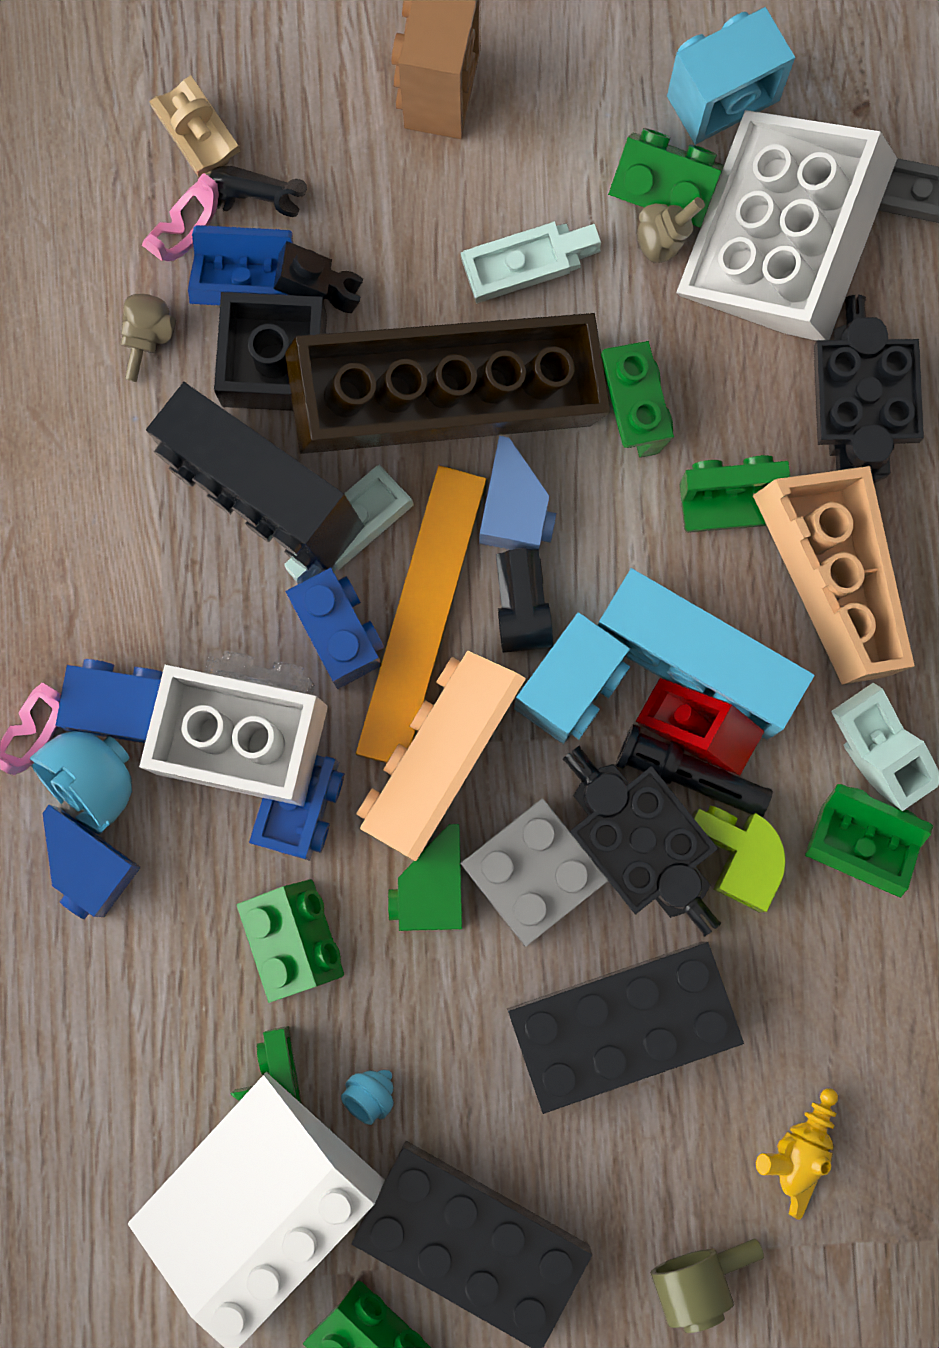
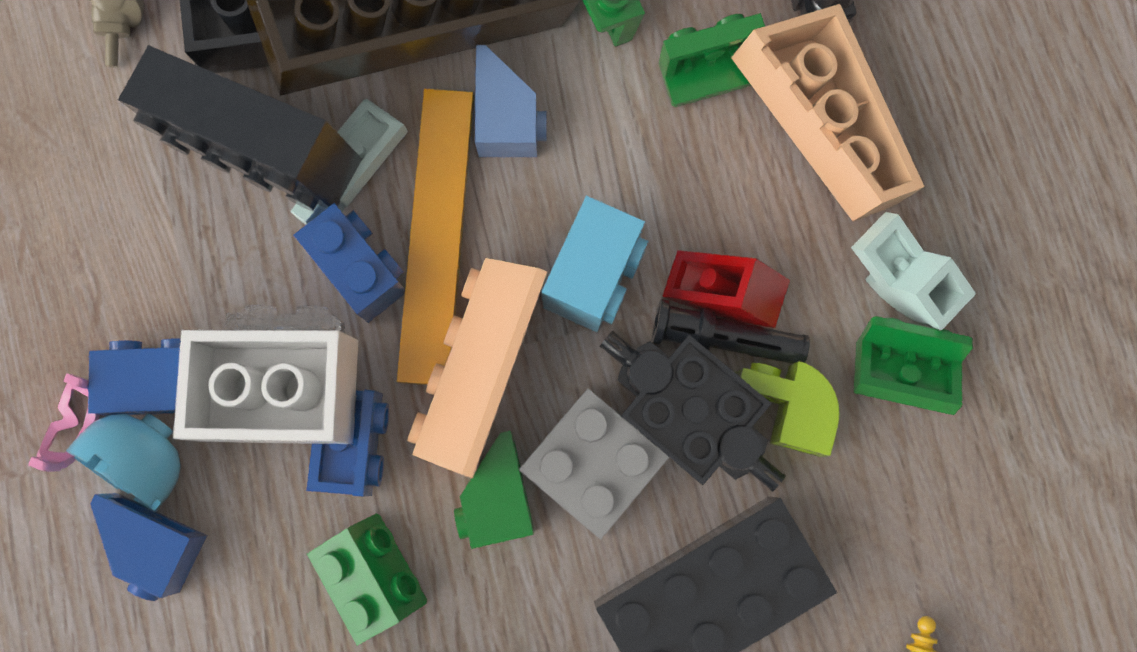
camera: 15 degrees left, 0 degrees up
(523, 612) = (533, 214): black piece -> none
(704, 653) = (719, 214): medium azure brick -> none

